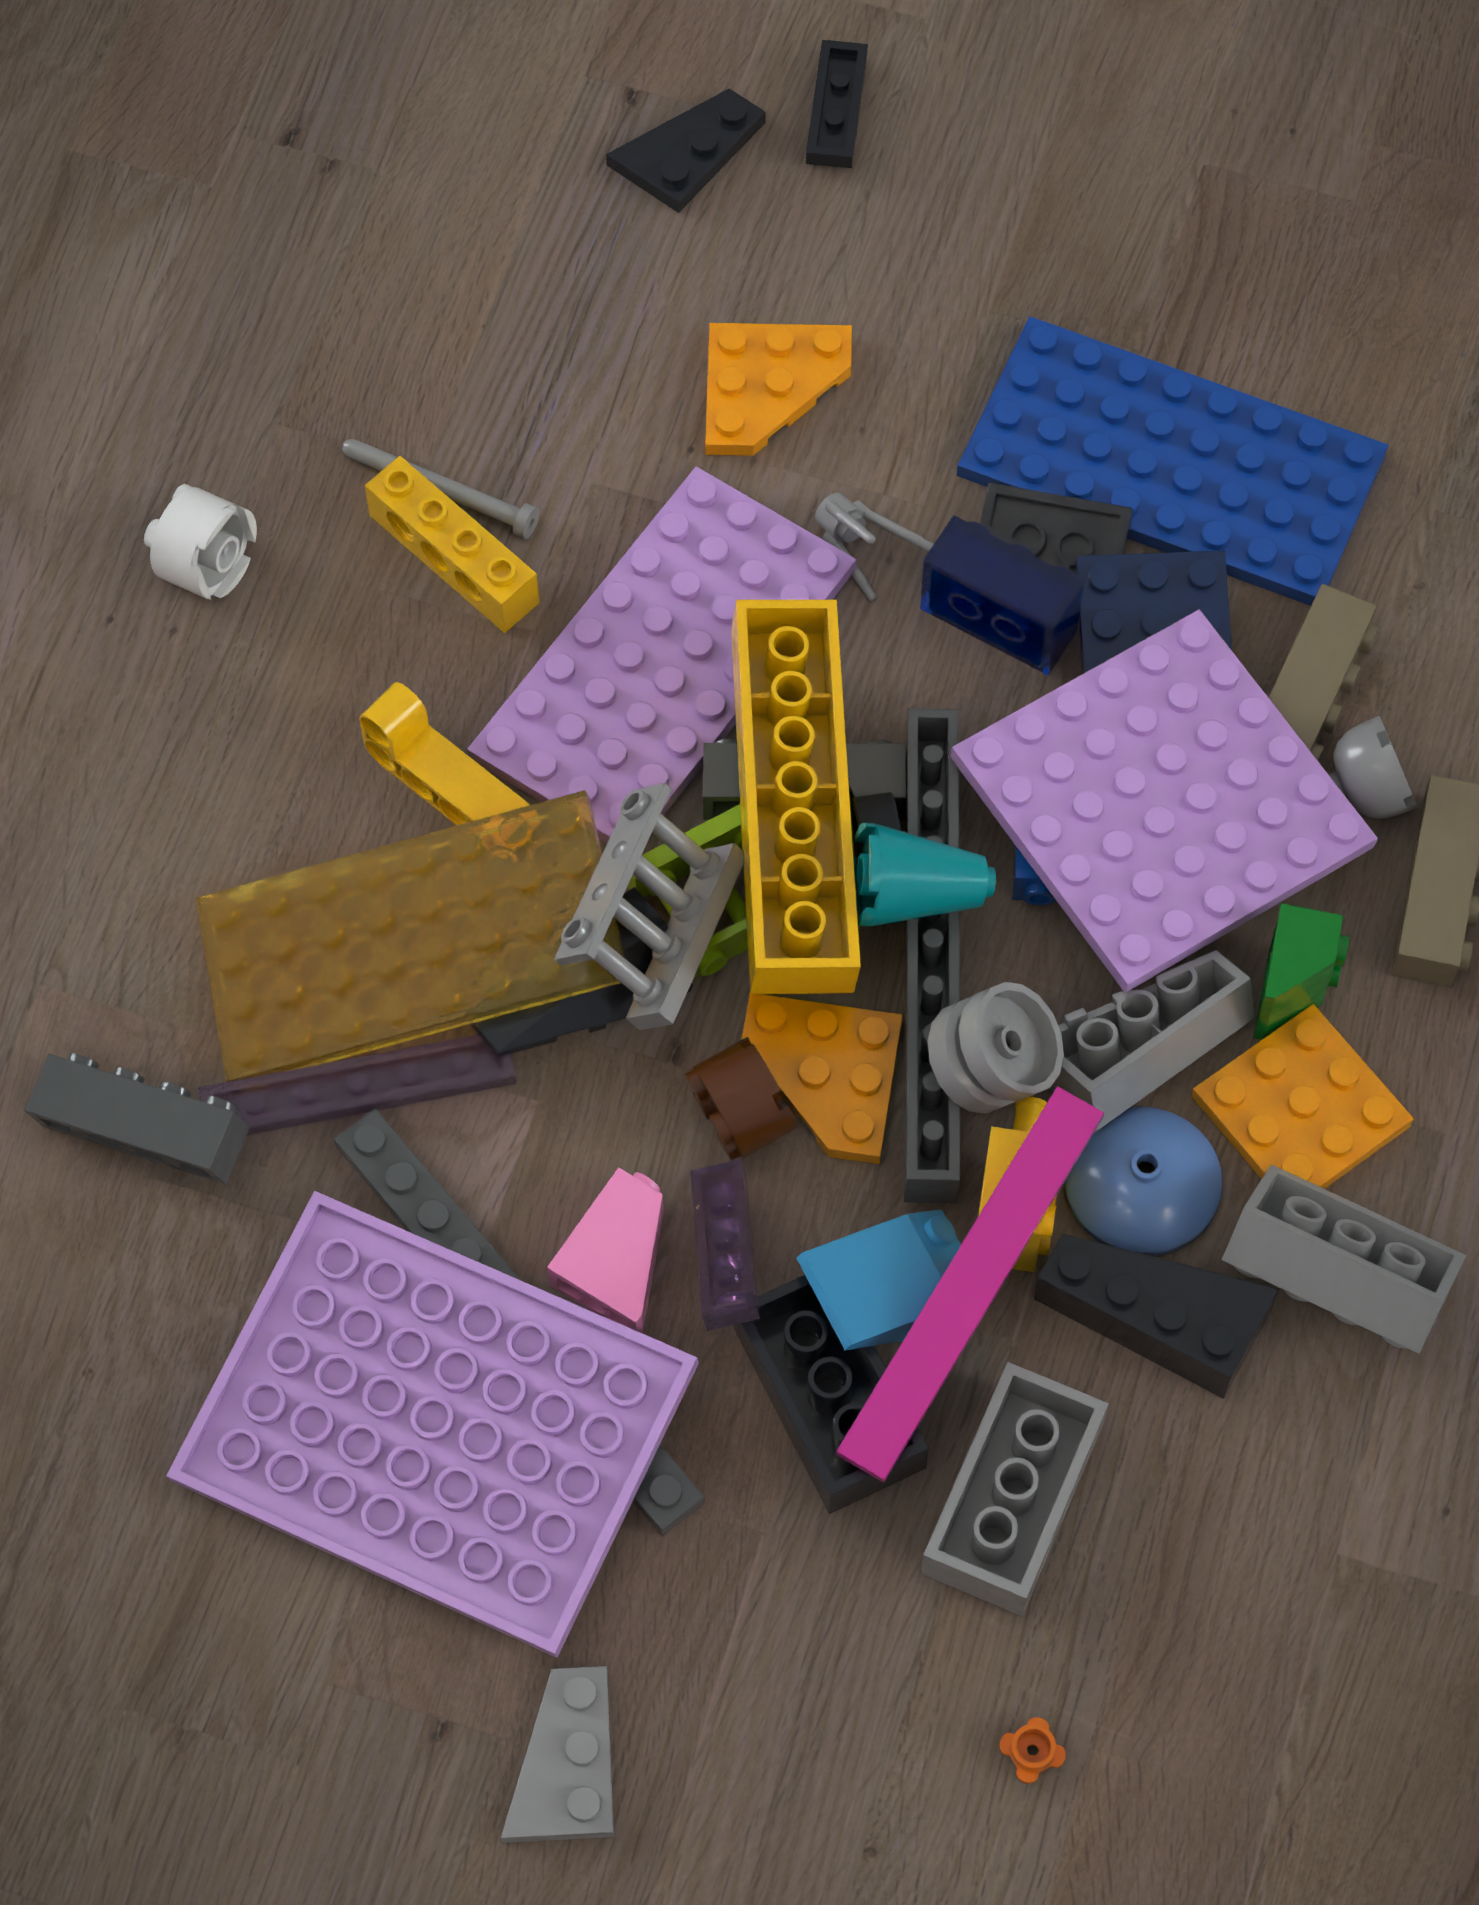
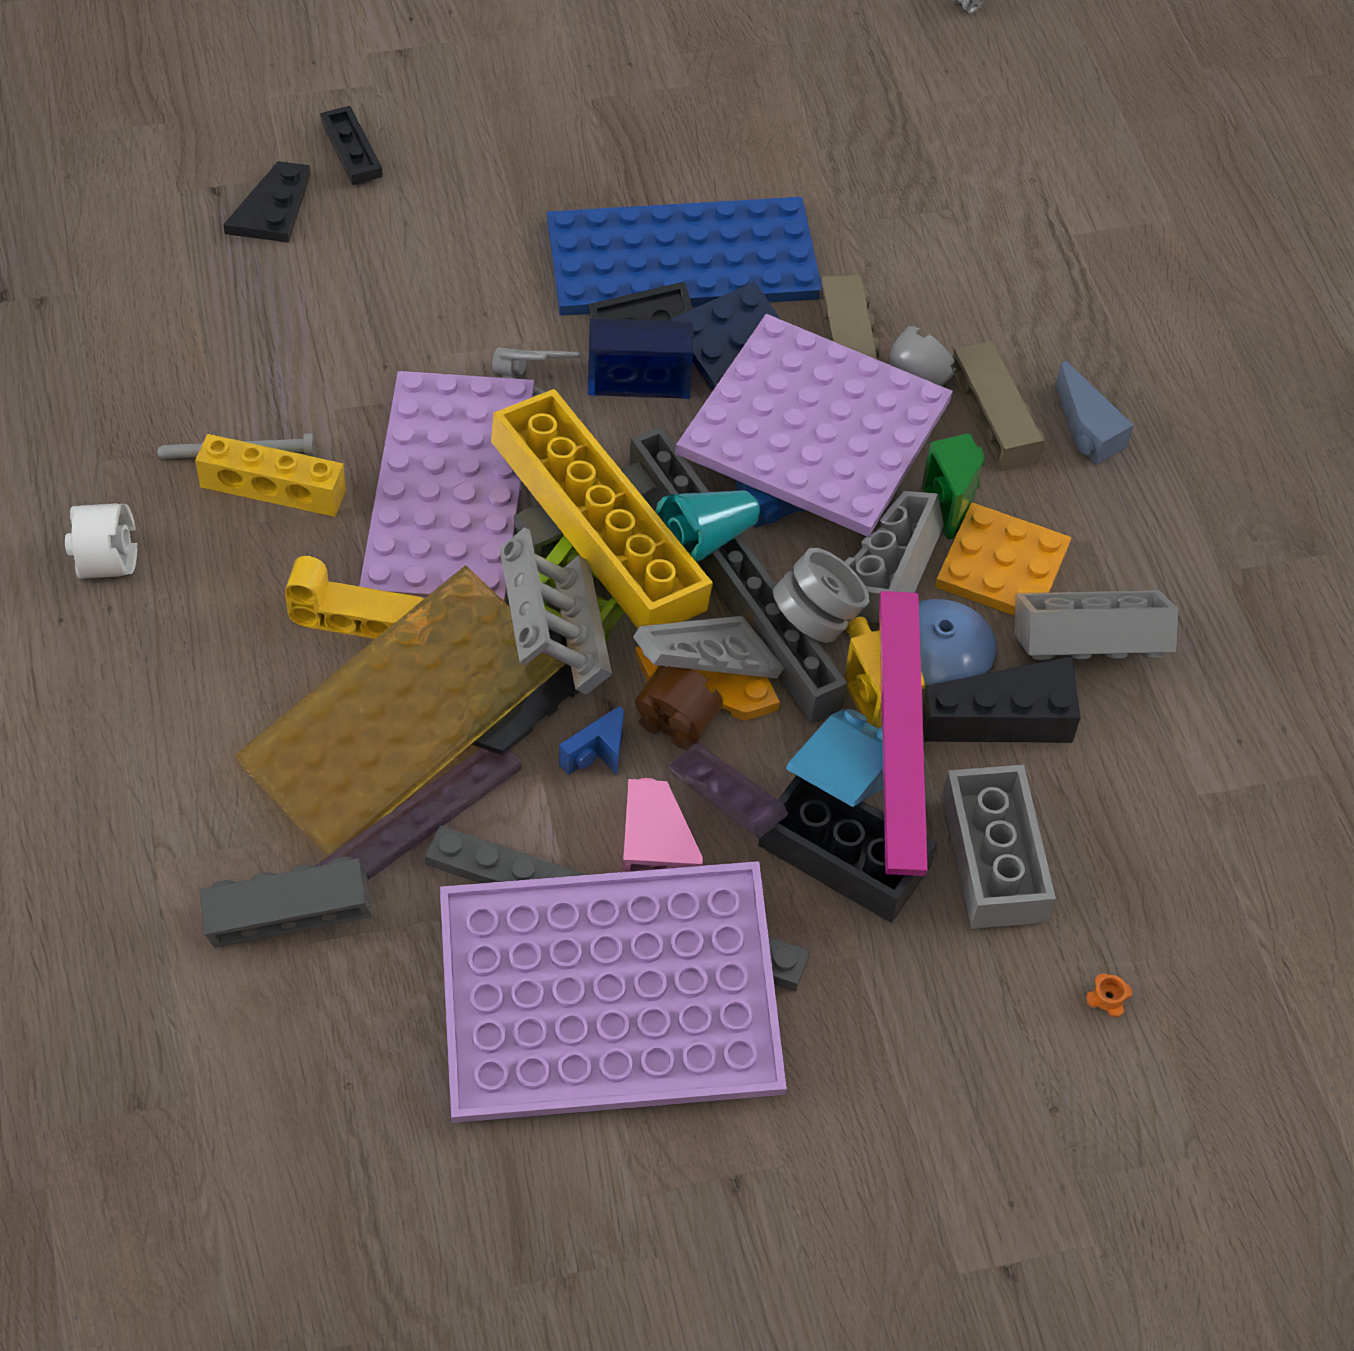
camera: 35 degrees left, 10 degrees down
(567, 1765) = (836, 1160): light grey wing -> none
(634, 1093) = (599, 739): none -> blue slope
(768, 379) = (408, 308): light orange plate -> none
(816, 1045) = (709, 645): none -> light grey wing

